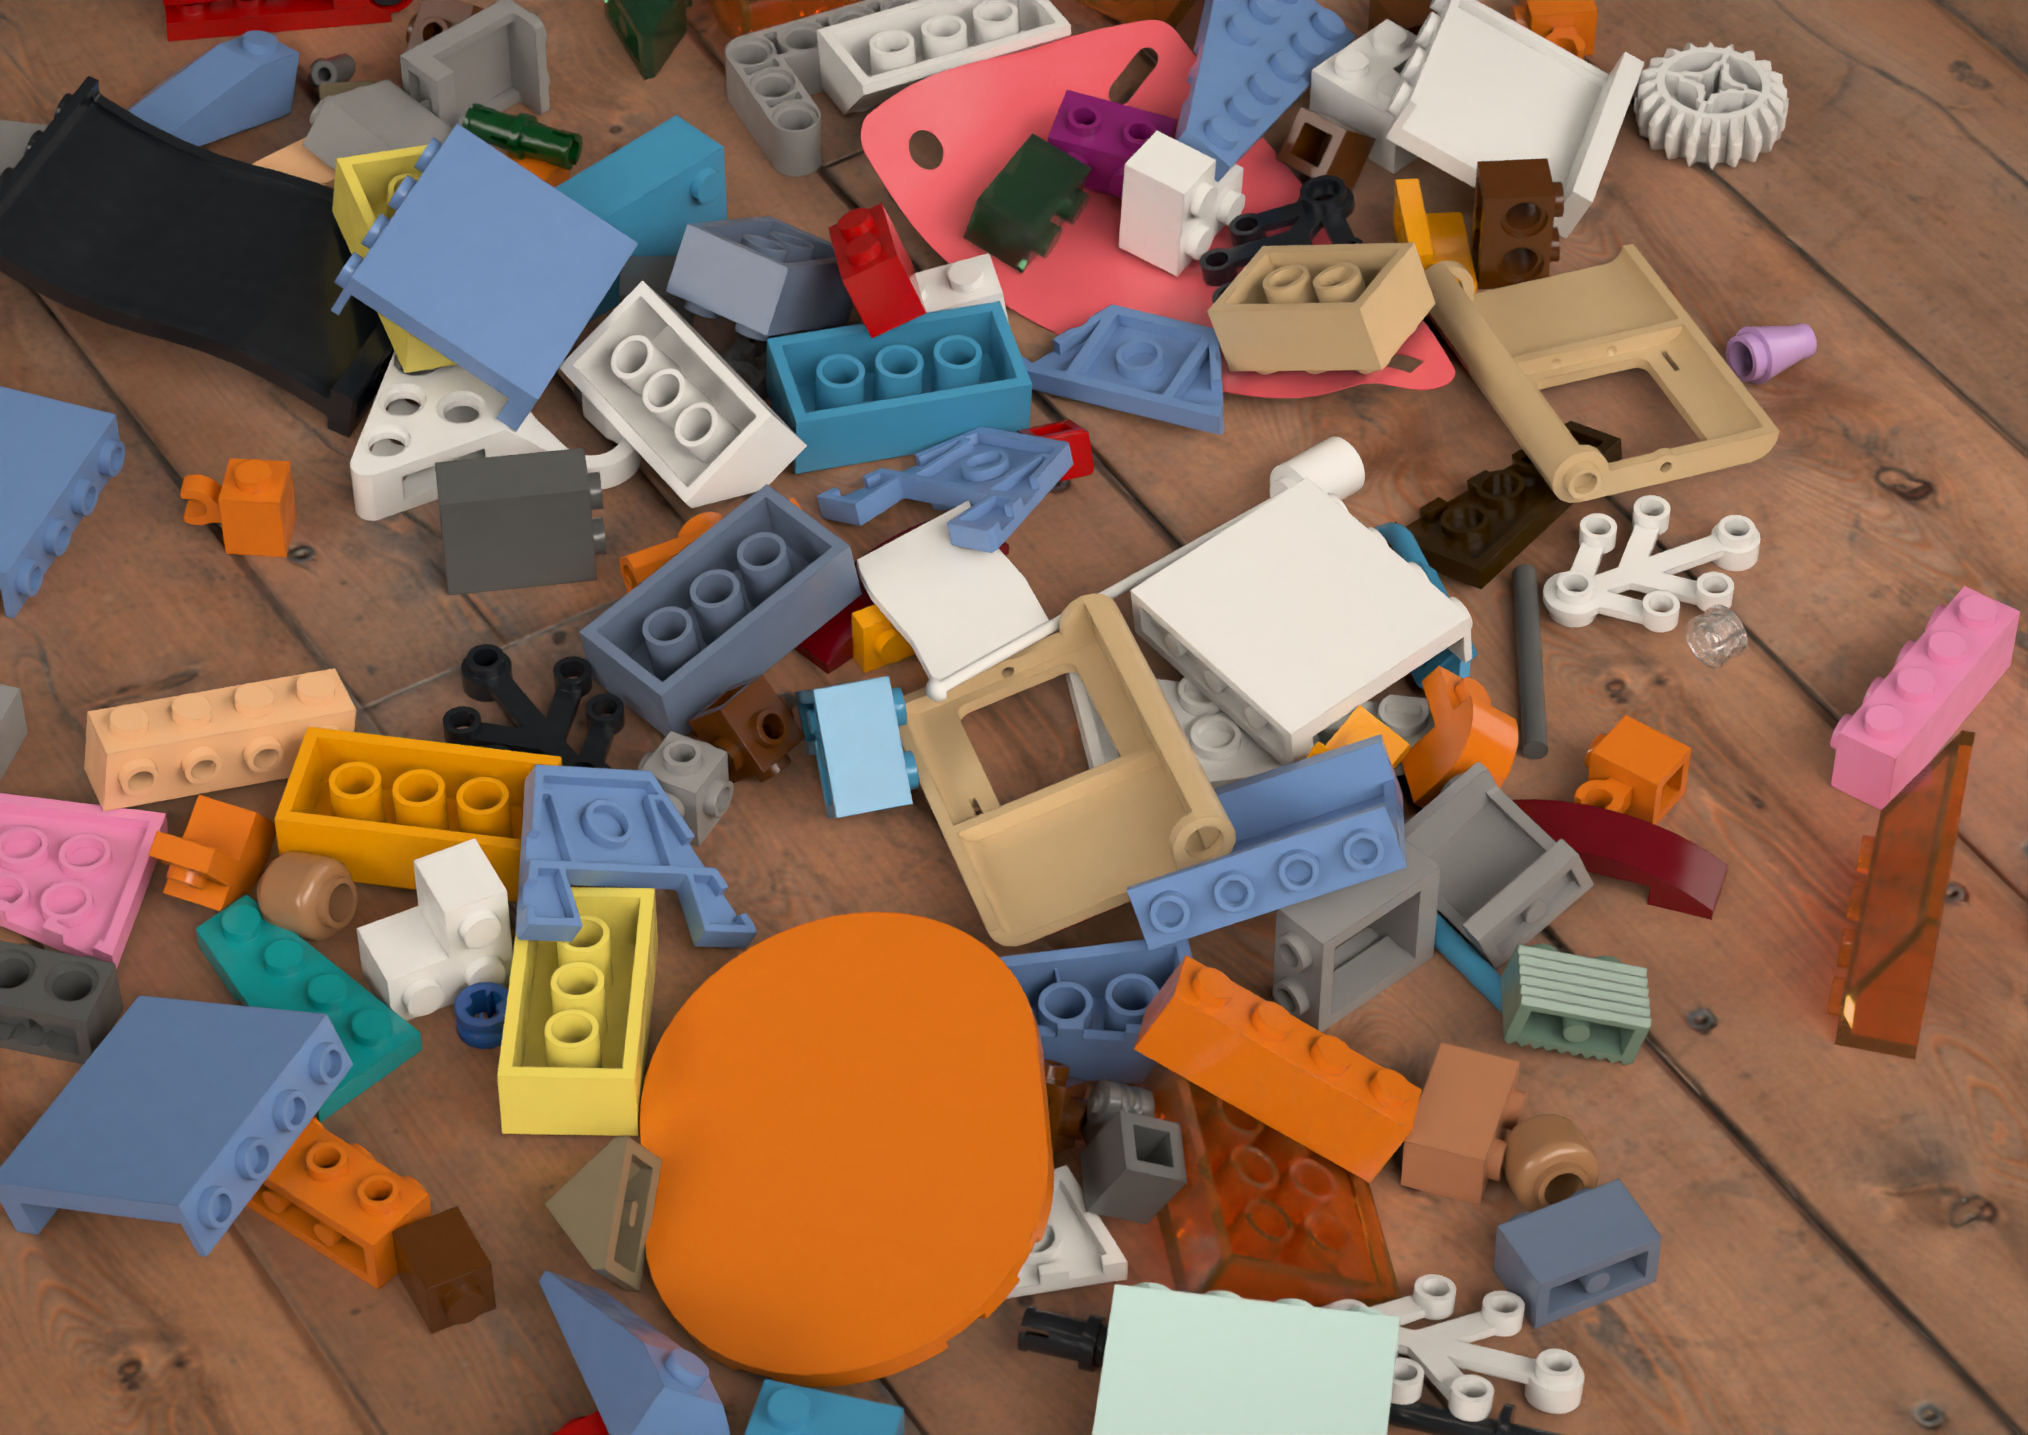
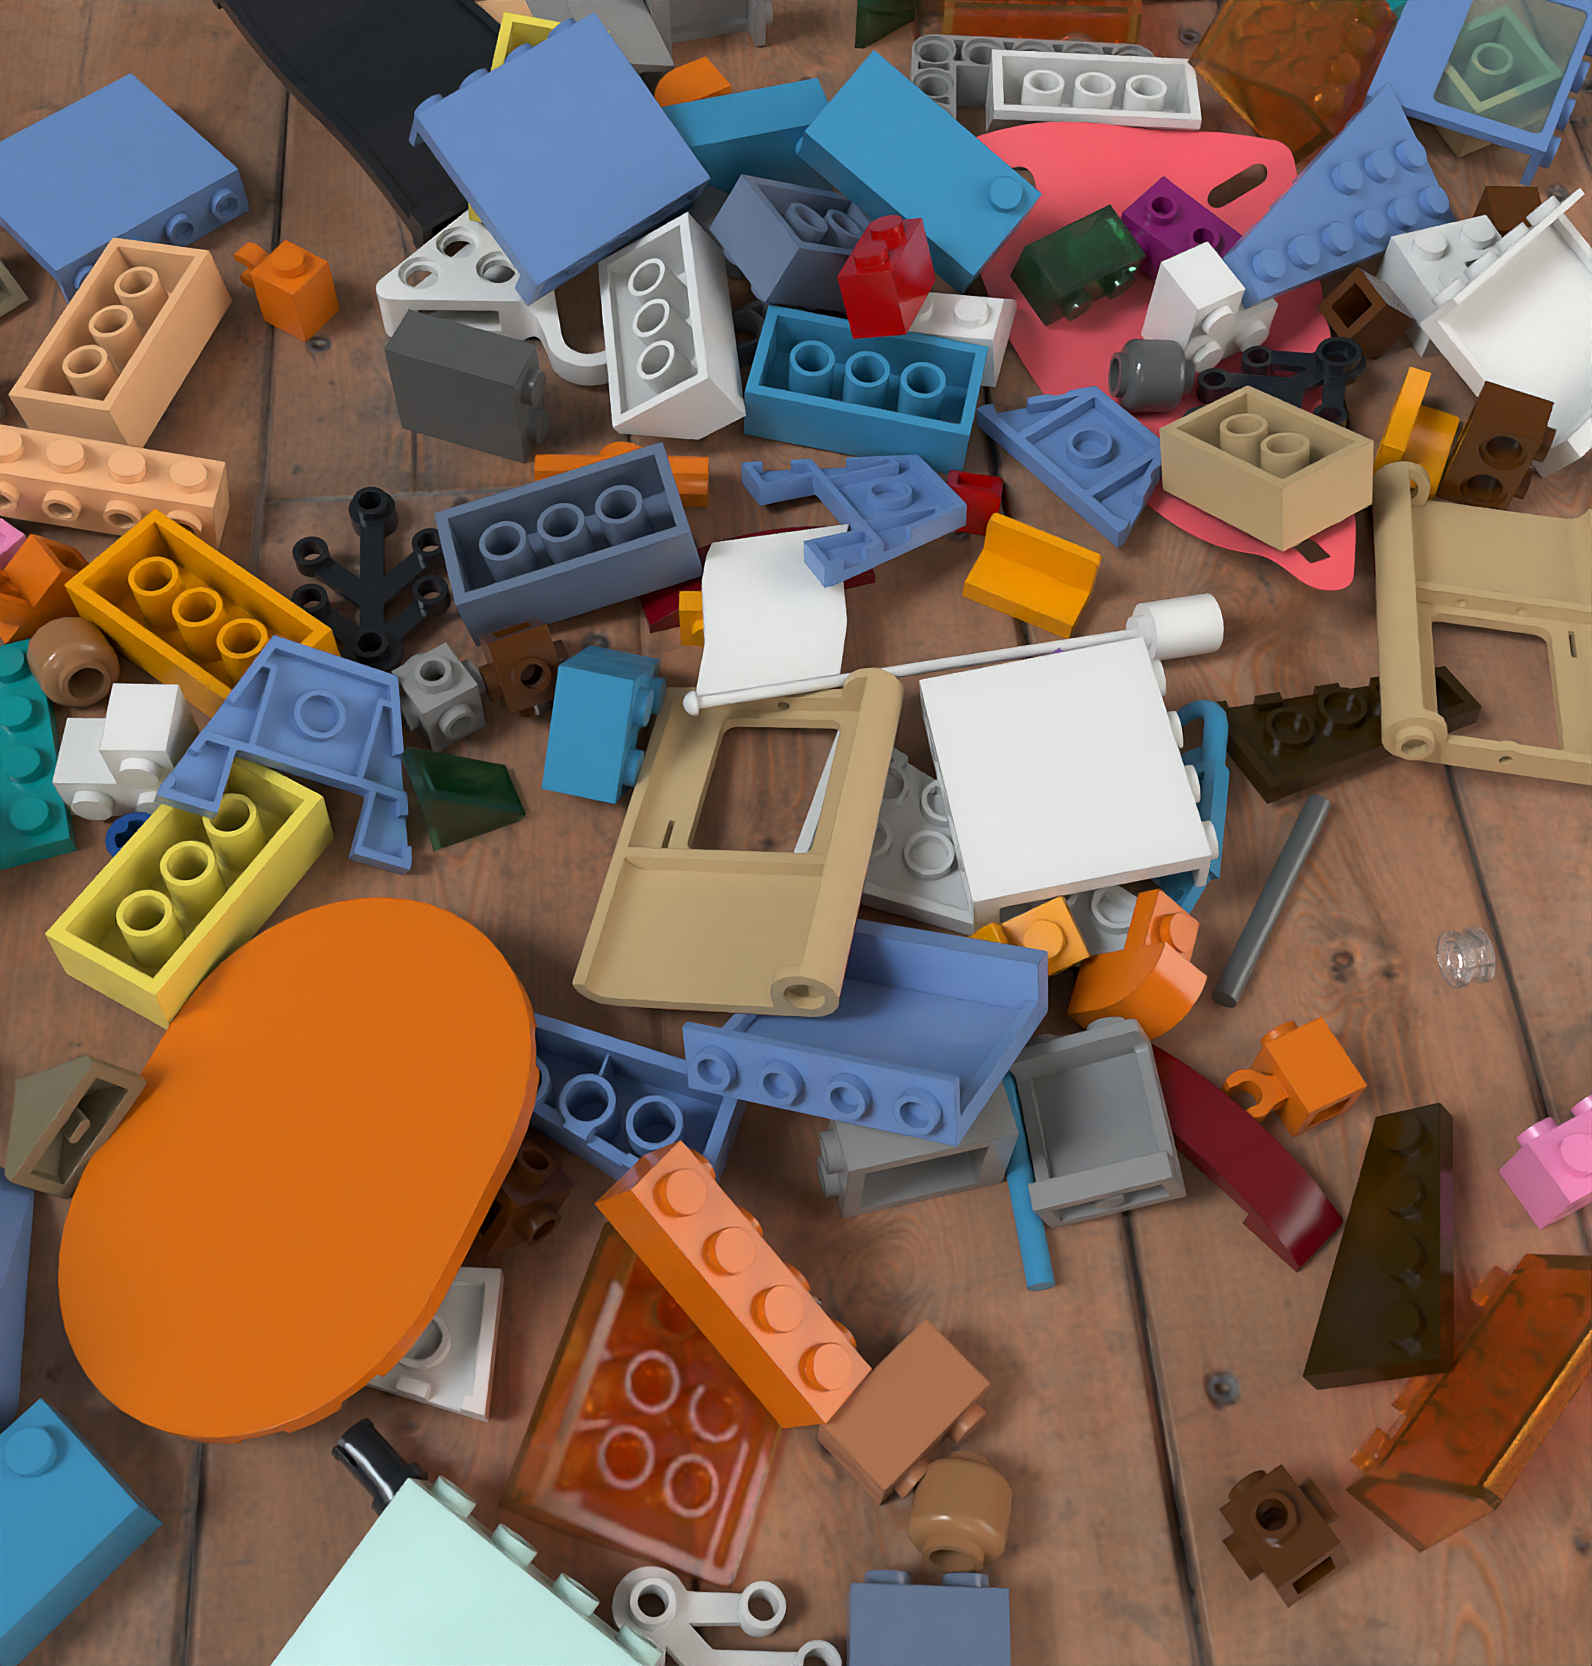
camera: 25 degrees right, 15 degrees up
(124, 606) = (123, 343): none -> light nougat brick
(524, 136) = (700, 53): dark green pin -> none
(758, 862) = (460, 795): none -> clear green slope
(819, 156) = (913, 160): none -> dark azure brick
(1130, 1156) = (538, 1309): dark grey brick -> none
(1158, 275) = (1150, 375): none -> dark grey head
(1158, 485) = (1033, 576): none -> light orange panel
(1575, 1003) = (1094, 1326): sand green brick -> none
(1580, 594) = (1436, 855): white plant -> none
(1782, 863) = (1394, 1269): none -> dark brown wing
(1804, 1068) = (1283, 1533): none -> reddish brown brick

